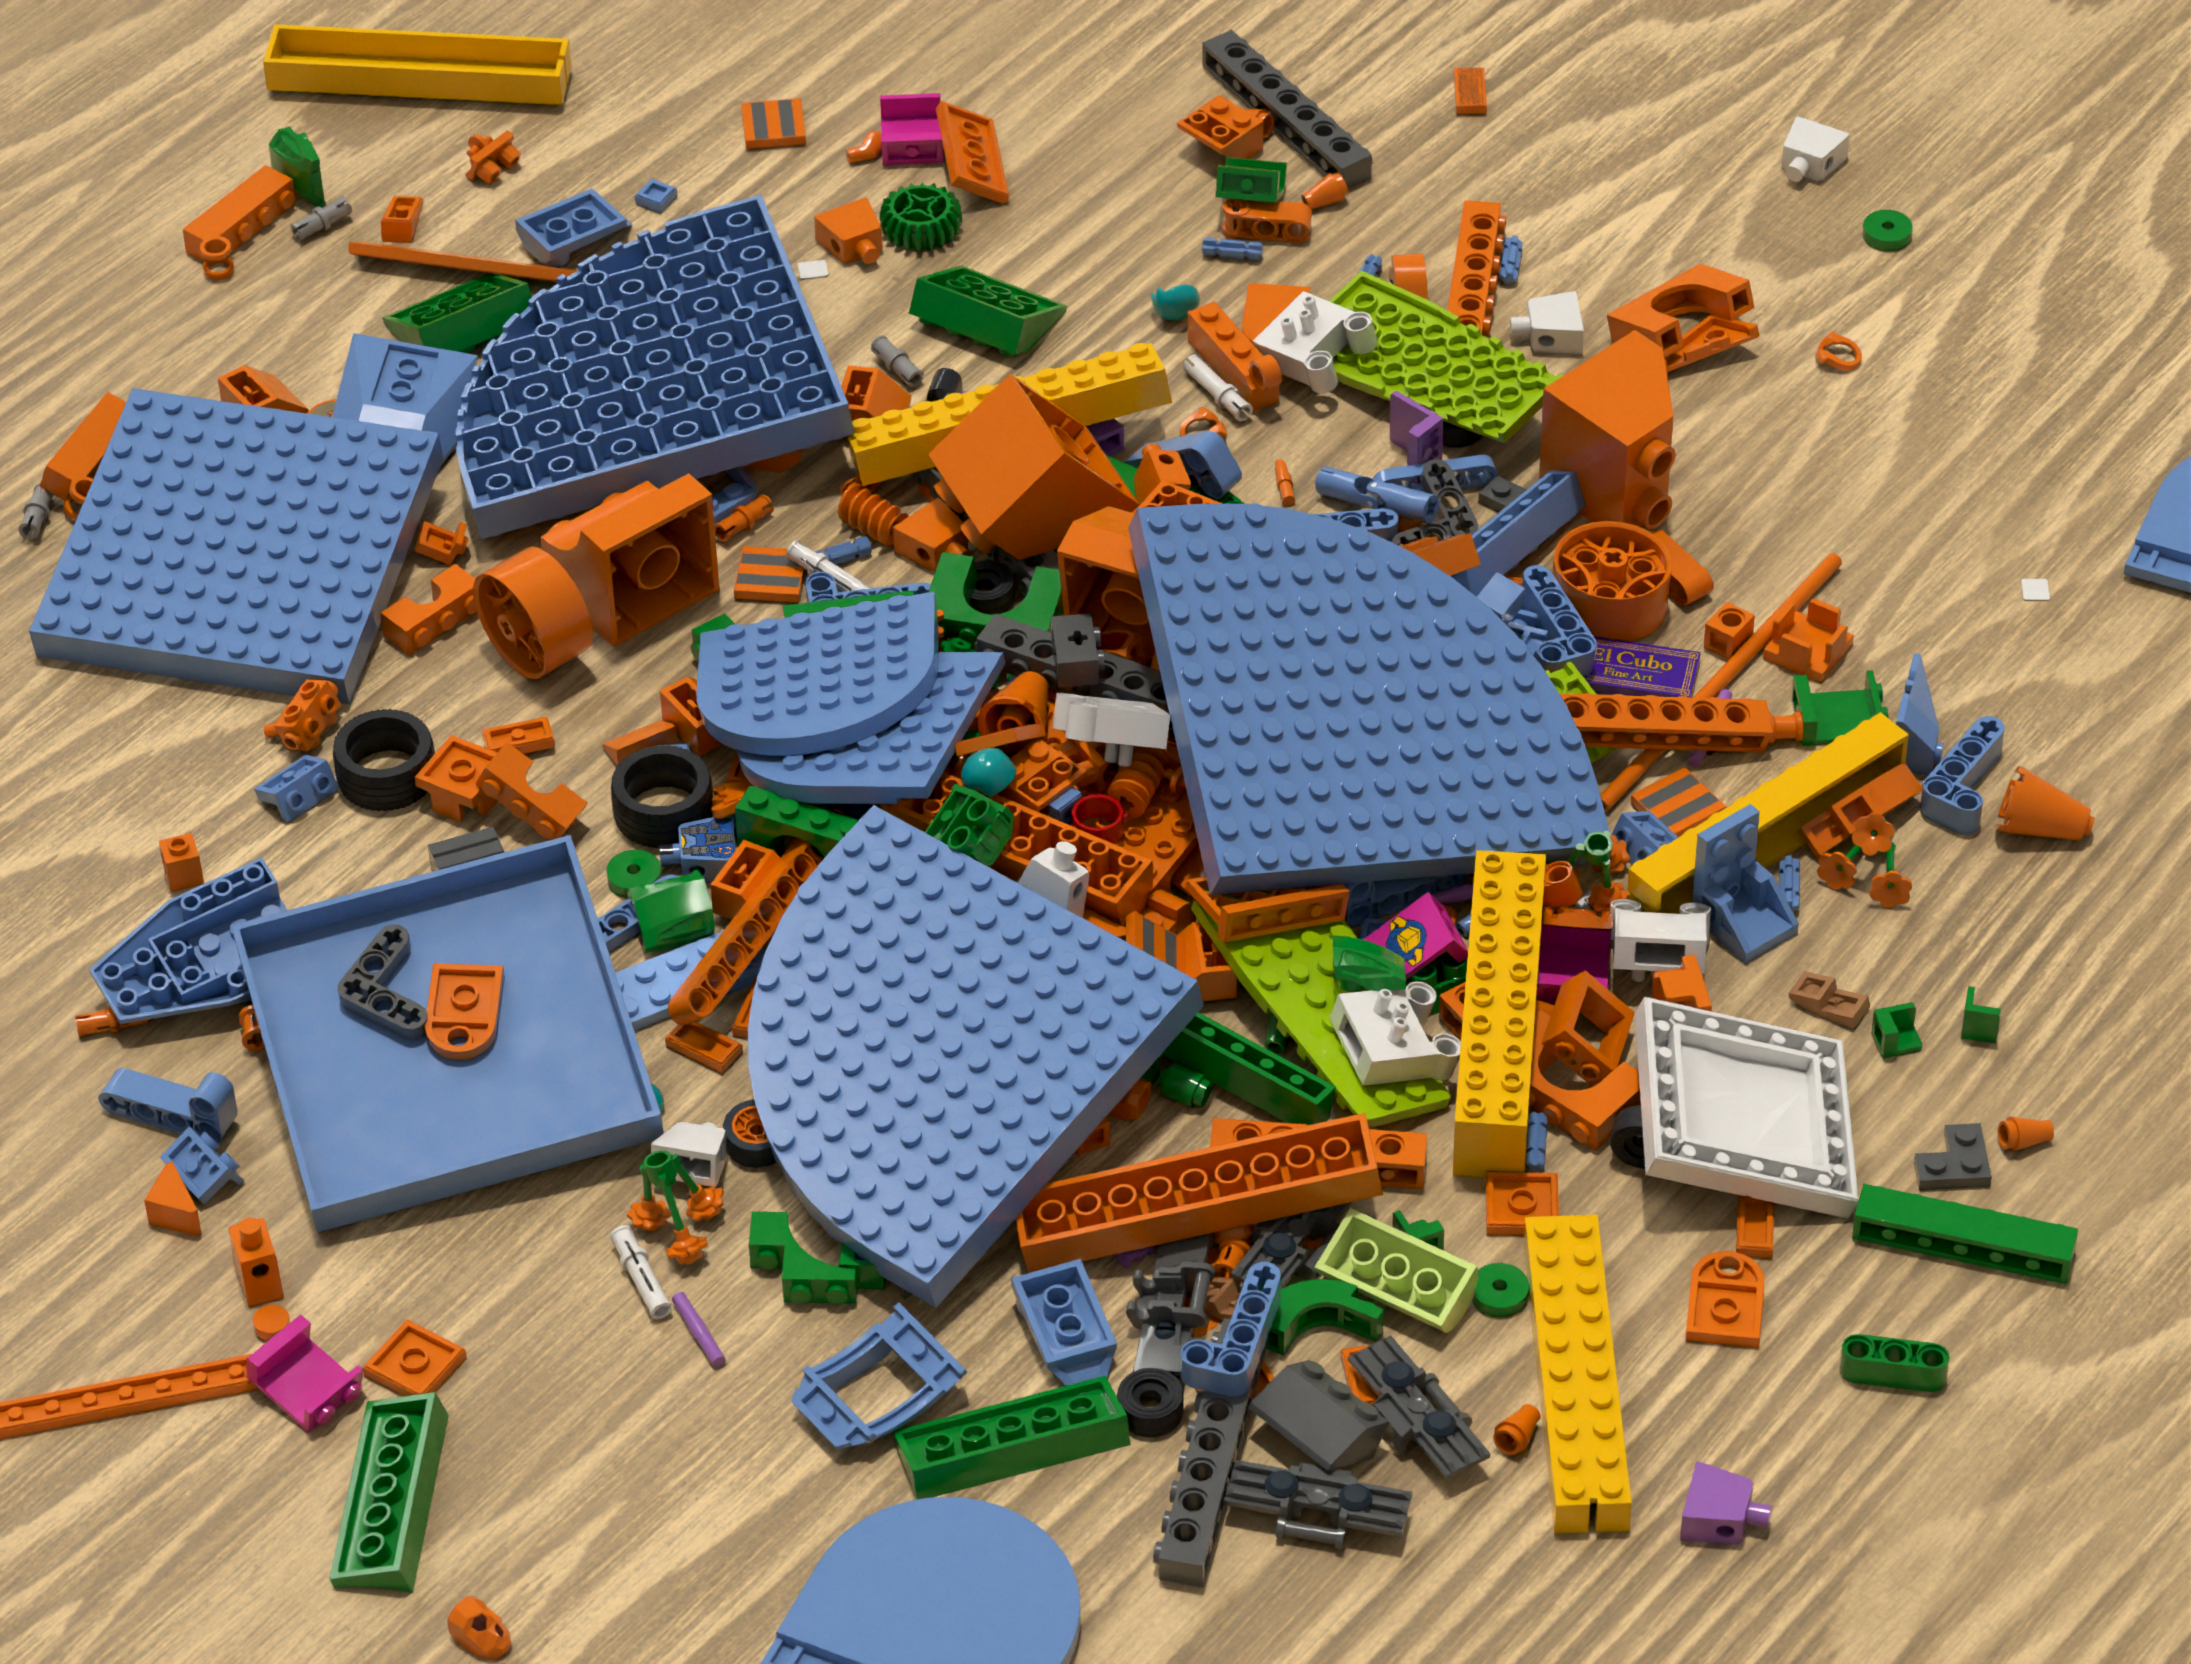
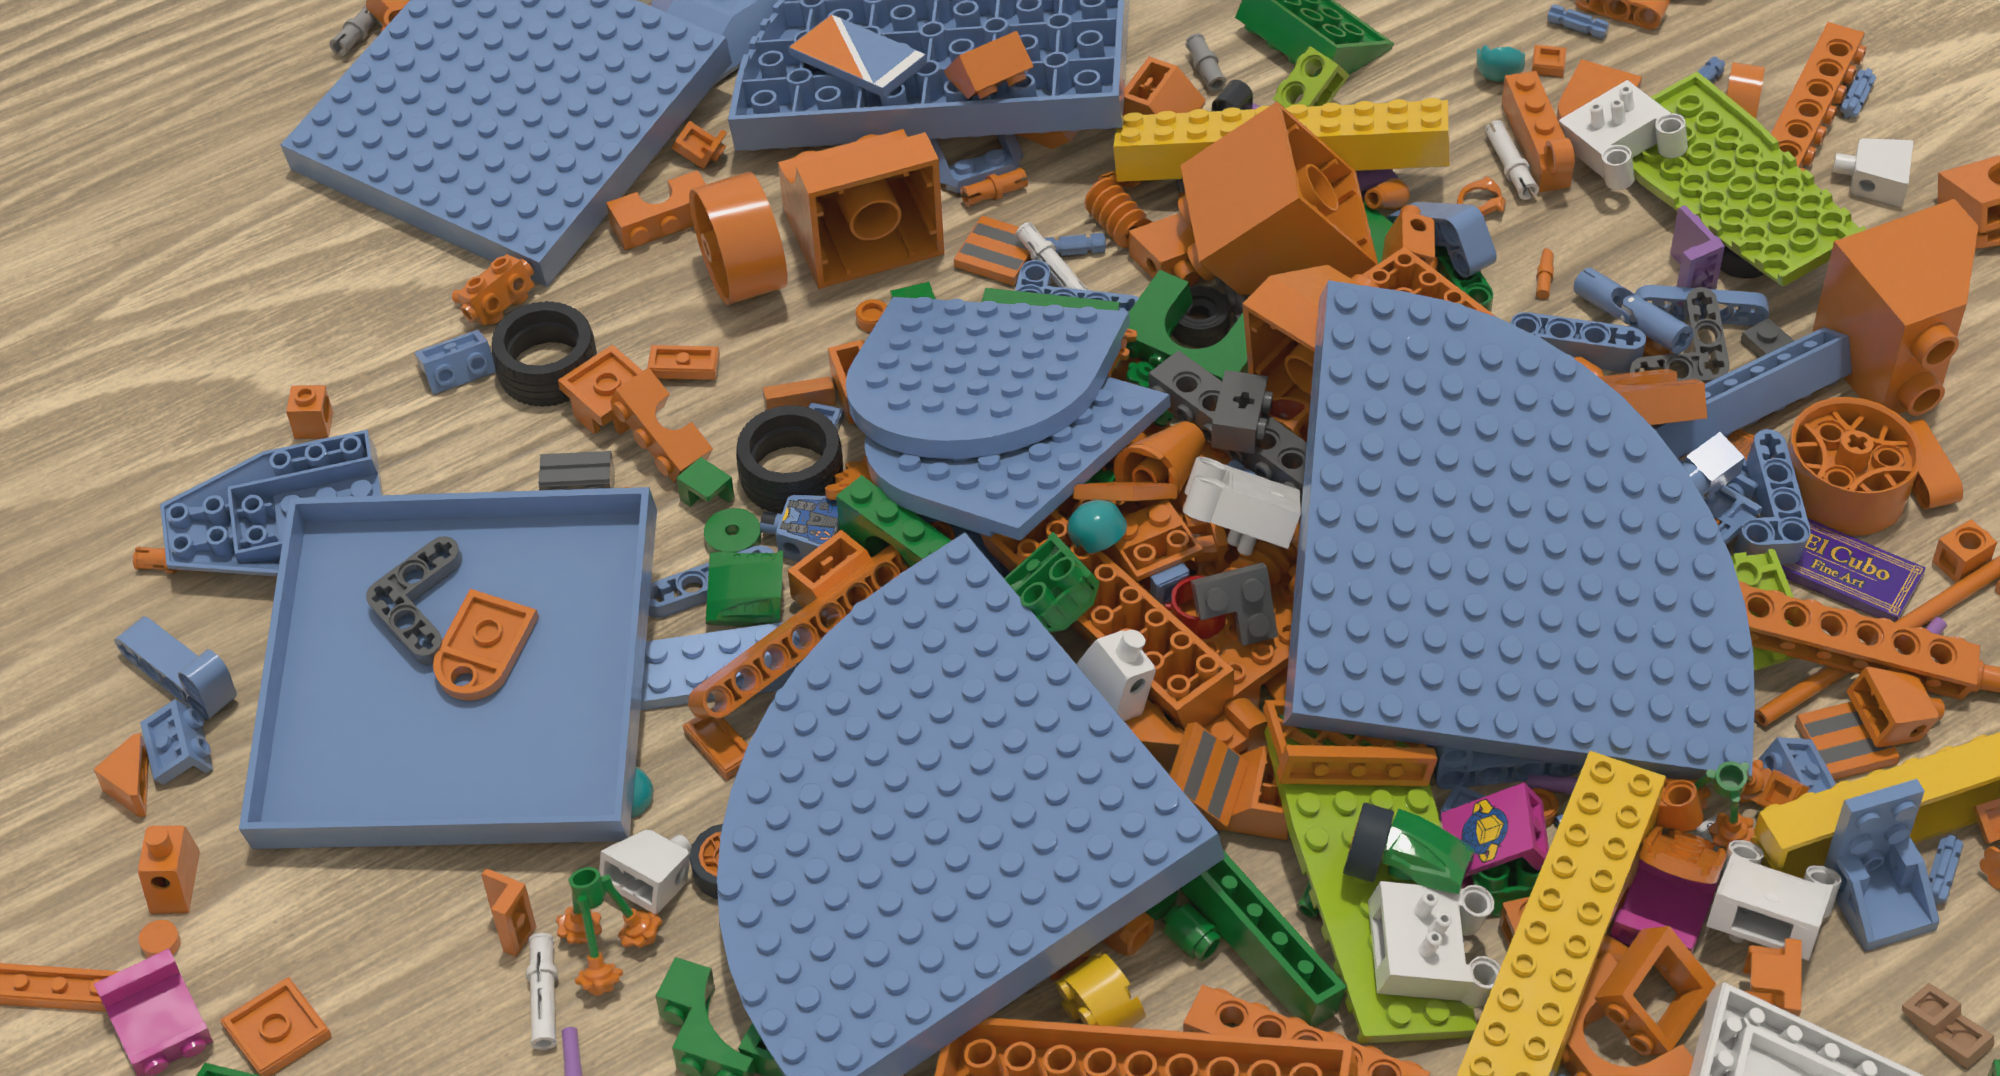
camera: 20 degrees right, 5 degrees up
(574, 422) = (858, 55): none -> tile
(584, 1211) = (510, 910): none -> orange panel
(595, 832) = (704, 482): none -> green panel
(677, 658) = (869, 313): none -> orange tile
(716, 403) = (989, 66): none -> orange slope
(1017, 362) = (1316, 89): none -> lime brick
(1121, 442) = (1388, 195): none -> orange cone
(1129, 1141) = (1099, 994): none -> yellow brick
(1137, 798) = (1244, 593): none -> dark grey plate
(1218, 290) = (1549, 60): none -> orange tile
(1317, 967) = (1368, 842): none -> black wheel
(1637, 850) = (1781, 790): none -> orange tile
(1709, 766) = (1894, 706): none -> orange torso

